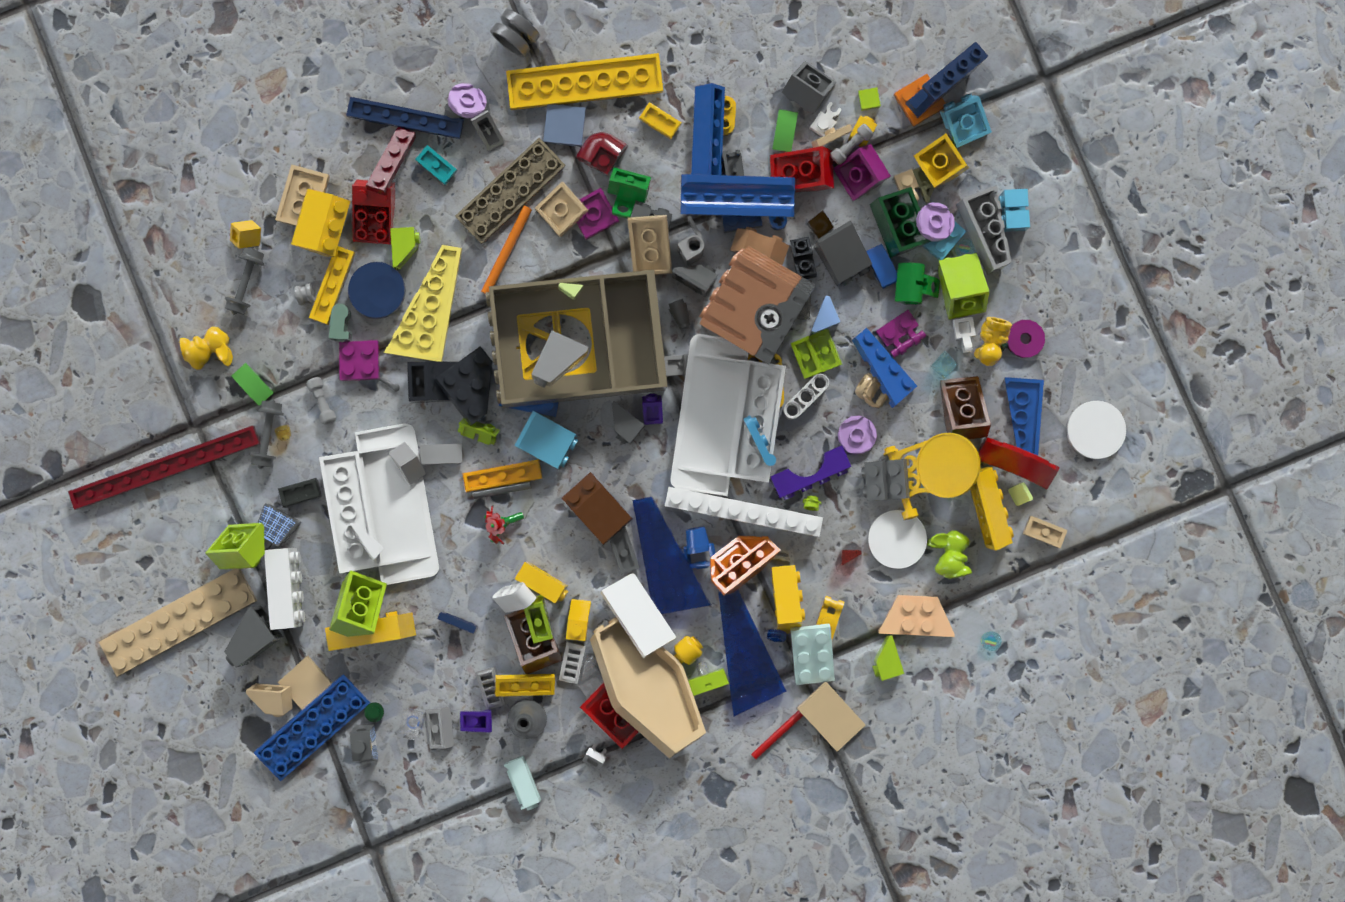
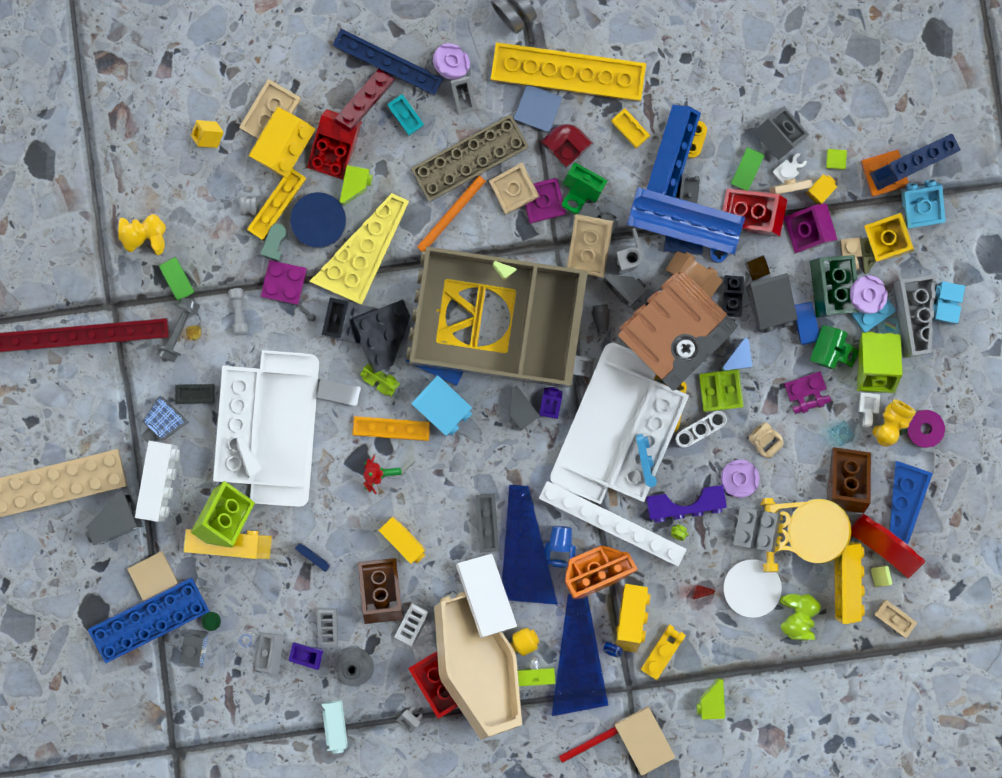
camera: 15 degrees right, 0 degrees up
(238, 546) = (124, 430): lime slope -> none
(252, 257) = (208, 158): dark grey piece -> none
(271, 698) = (117, 582): tan slope -> none
(407, 463) = (304, 392): light grey slope -> none
(502, 490) = (387, 442): dark grey bar -> none
(514, 597) = (373, 547): white beam -> none
(524, 685) = (361, 633): yellow plate -> none
(538, 620) = (390, 574): lime slope -> none
(557, 358) = (474, 333): light grey slope -> none
(578, 620) = (428, 585): yellow slope -> none
(597, 508) = (473, 483): reddish brown slope -> none
(812, 654) = (642, 676): light aqua plate -> none
(839, 155) = (821, 192): light grey piece -> none
(889, 373) = (786, 428): blue wing -> none
(917, 617) = (751, 667): light nougat wing -> none
(991, 640) = (816, 709): clear light blue tile -> none
(1096, 429) = (970, 533): white tile -> none

